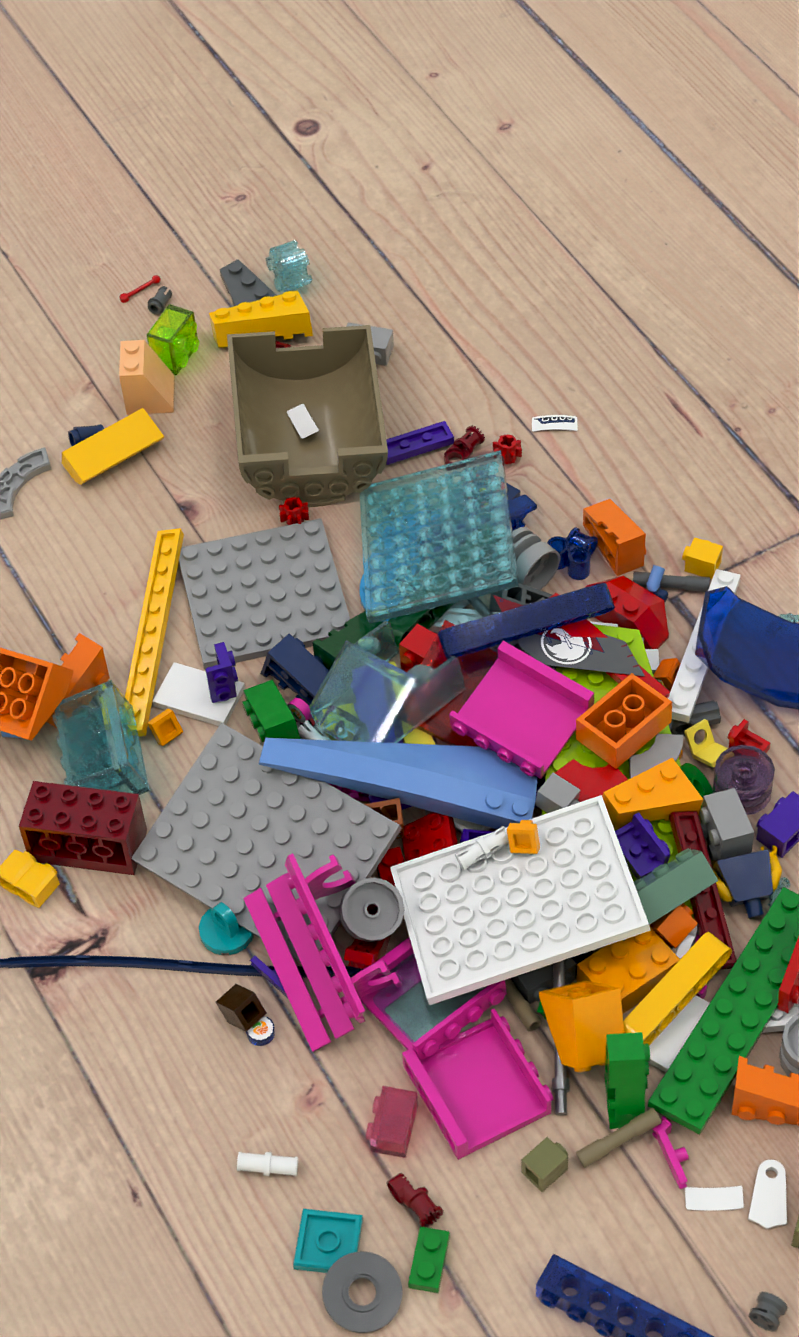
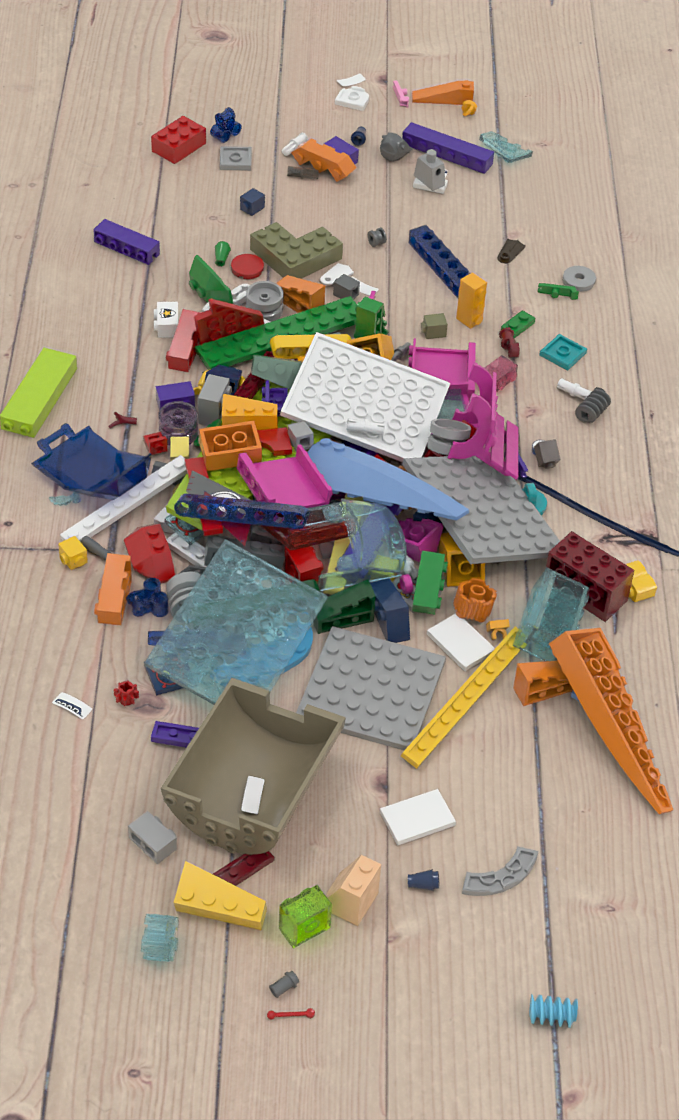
camera: 155 degrees left, 5 degrees down
(111, 446) = (413, 853): yellow brick -> none
(129, 491) = (417, 817): none -> white tile
(198, 721) = (474, 600): none -> orange brick
(221, 1138) = (593, 405): none -> dark grey piece
(222, 676) = (445, 617): dark purple bracket -> none
(243, 283) = (204, 956): dark grey wing -> none
(357, 1317) = (573, 327): dark grey piece -> none
(467, 442) = (154, 712): dark red connector -> none
(508, 1210) = (471, 300): none -> light orange brick
(523, 837) = (341, 411): light orange tile -> none
(601, 1147) = (400, 320): dark tan piece -> none
(654, 581) = (117, 549): medium blue arm -> none
(667, 671) = (160, 501): orange slope -> none
(728, 1162) = (345, 287): none -> dark grey brick

